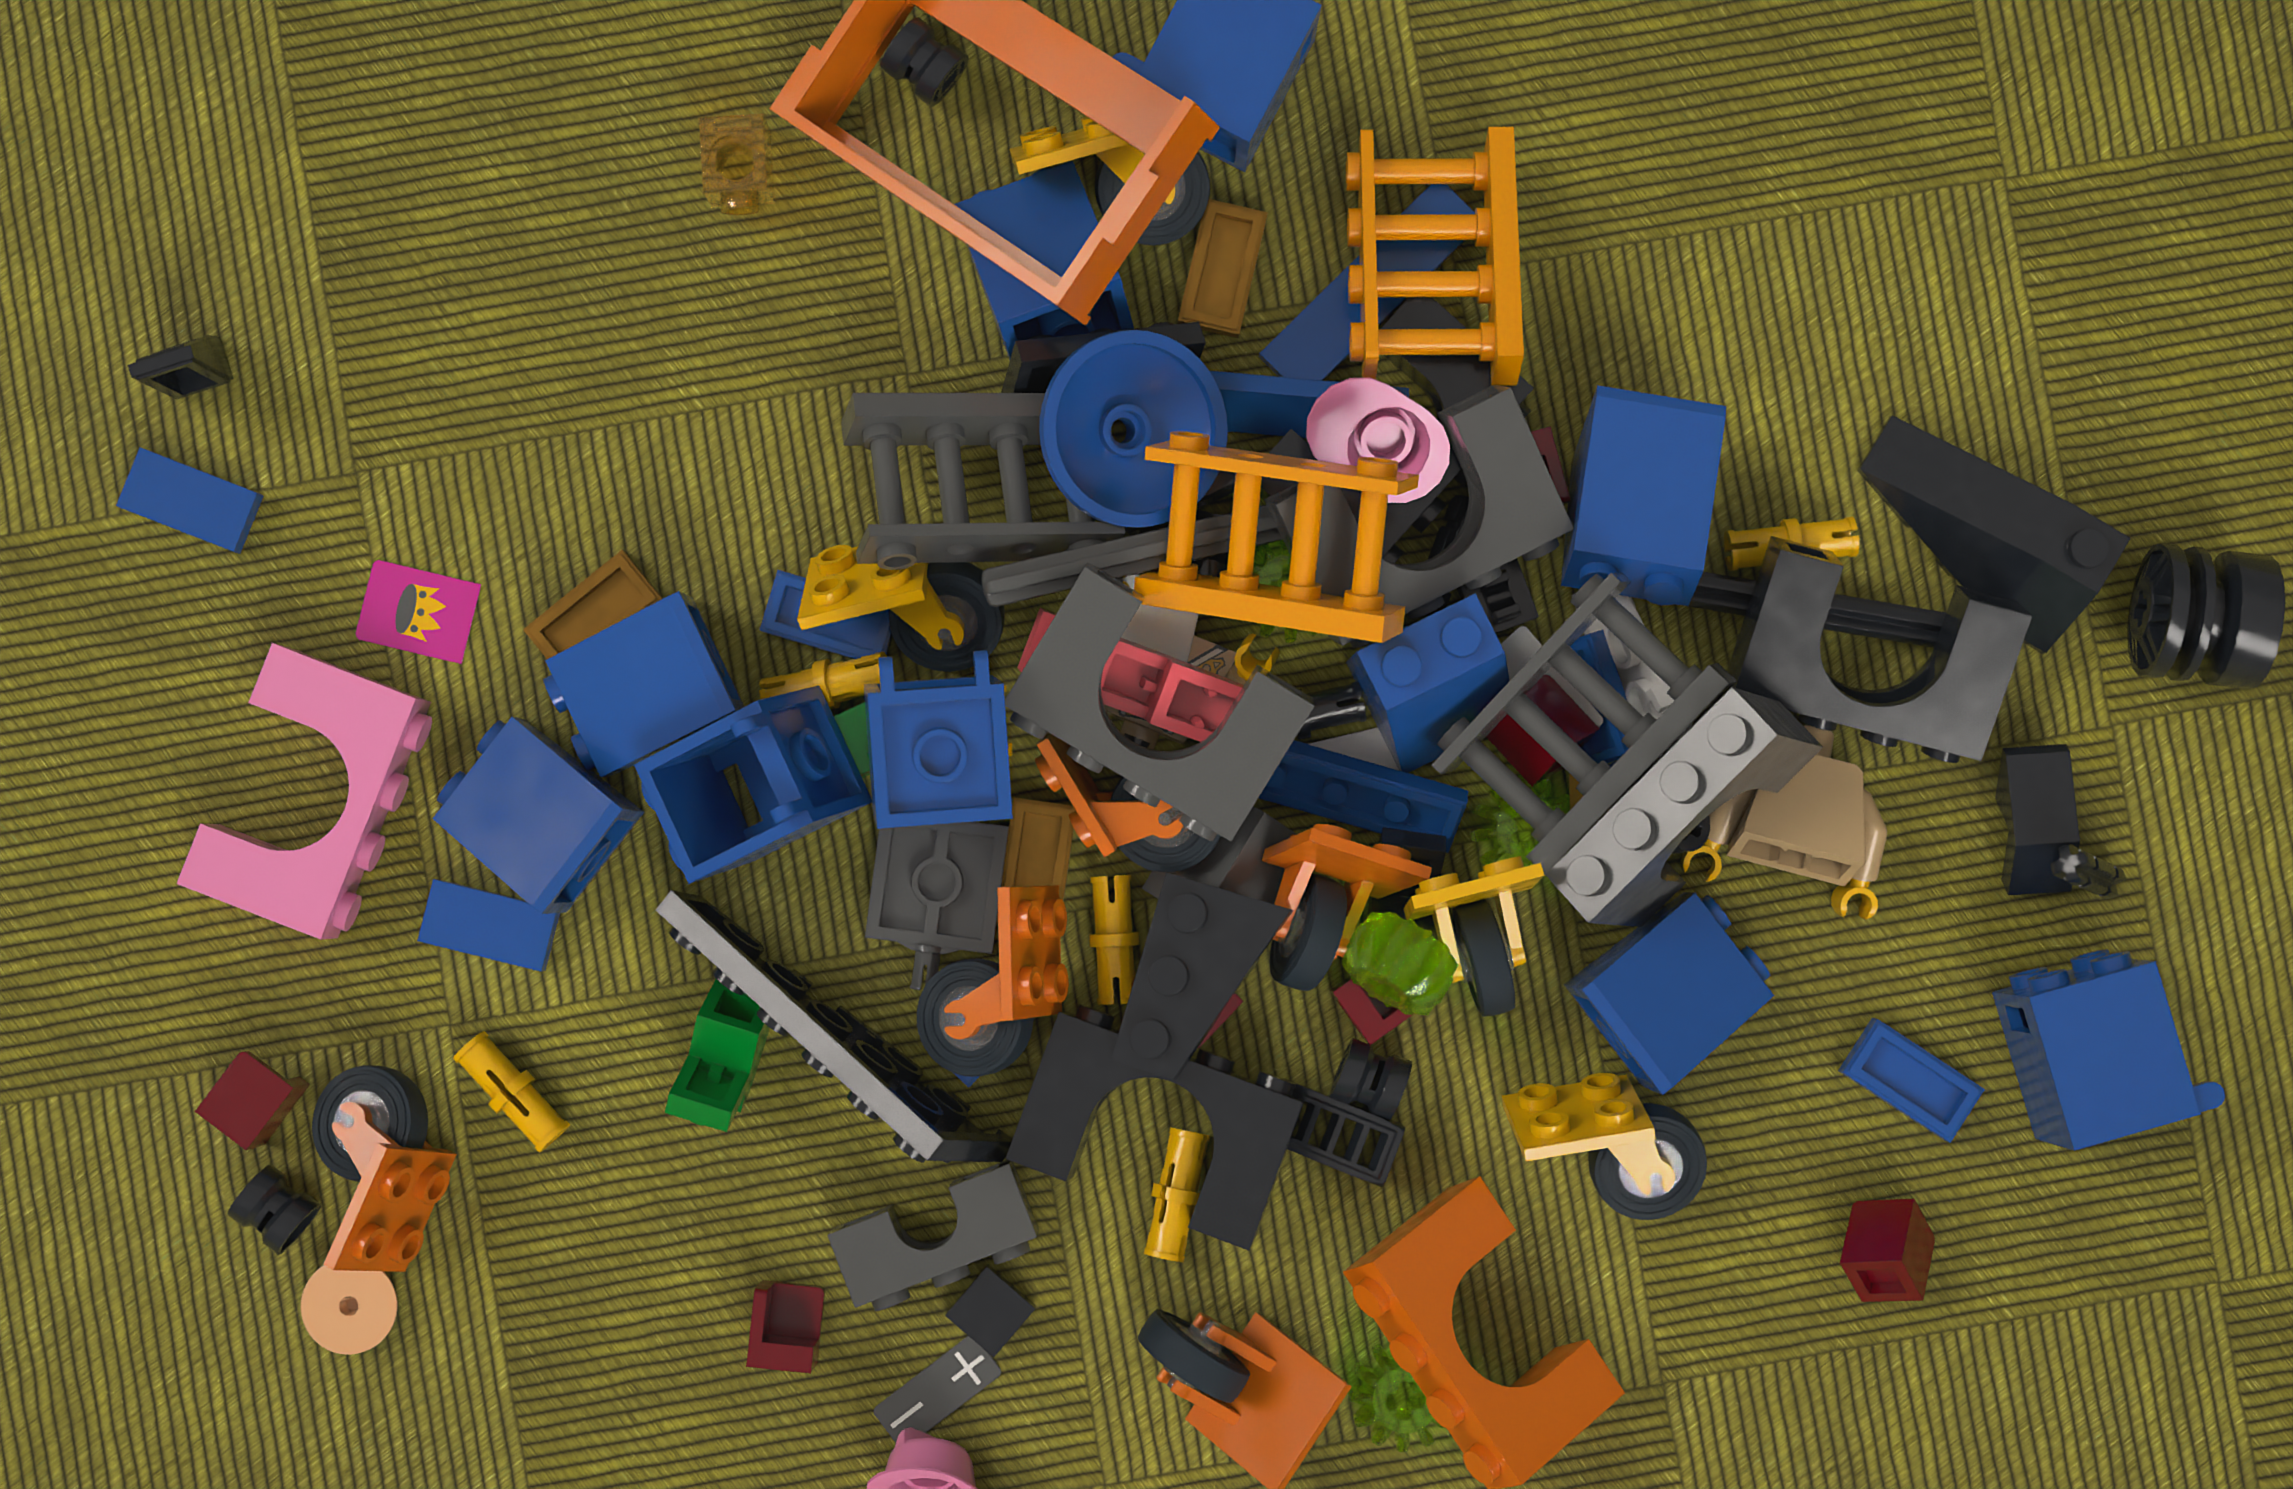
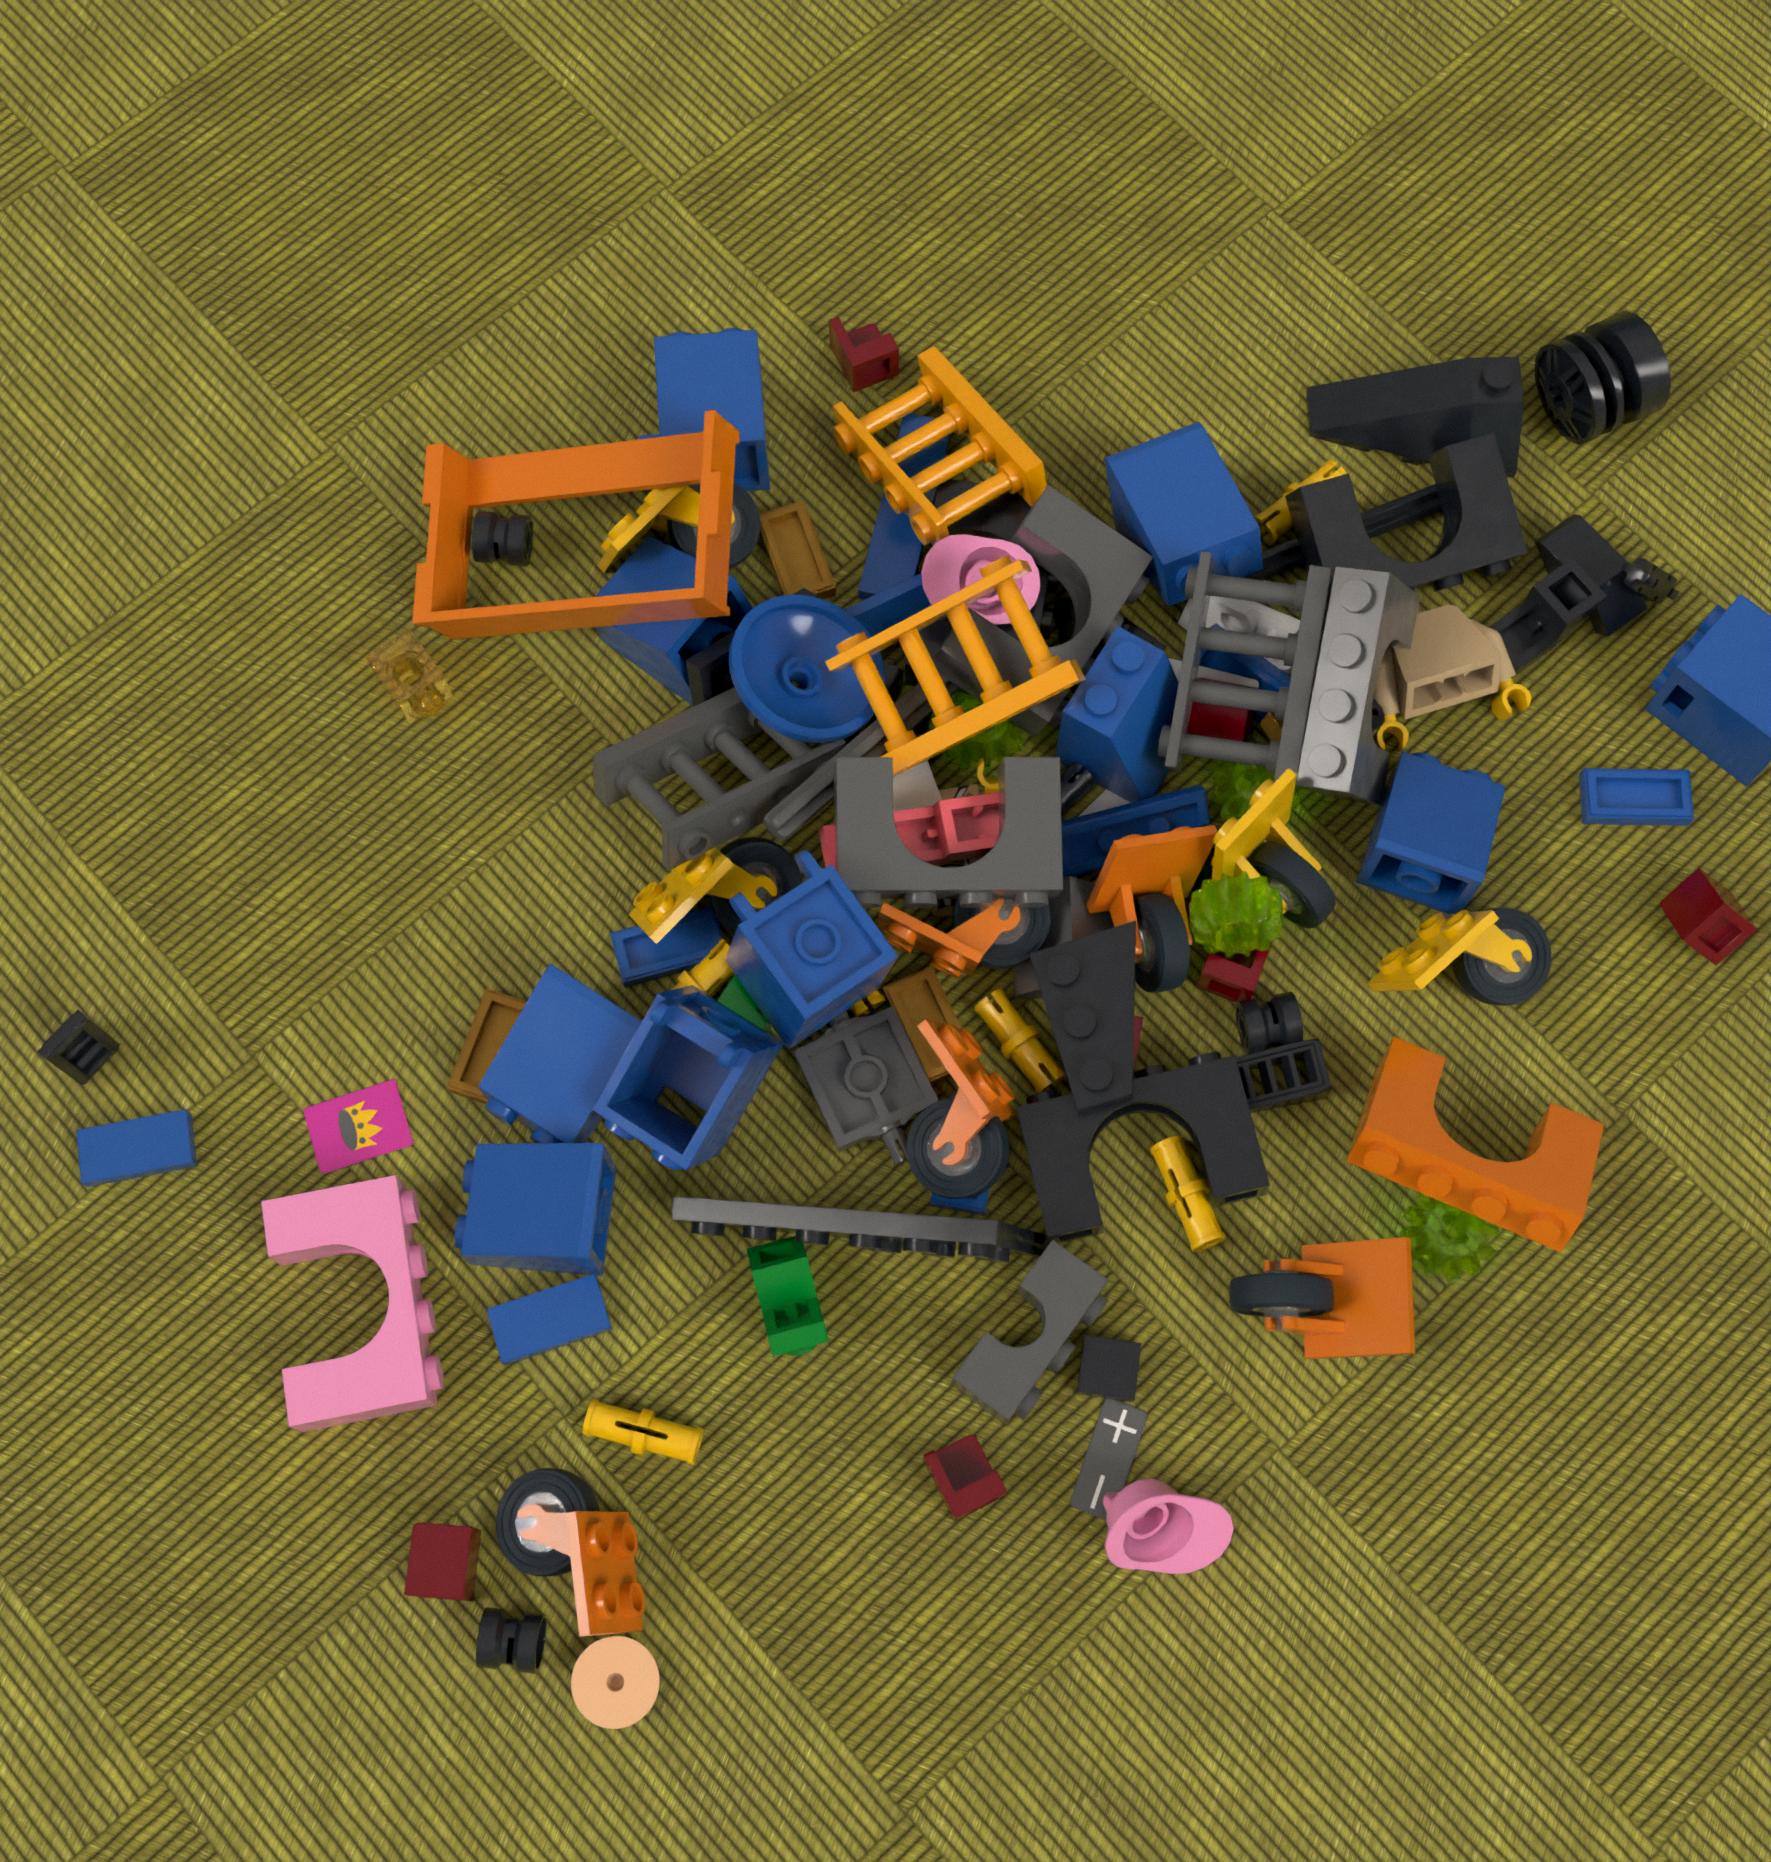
camera: 30 degrees left, 15 degrees down
(1441, 78) = (864, 354): none -> dark red panel
(1953, 836) = (1548, 614): none -> black slope

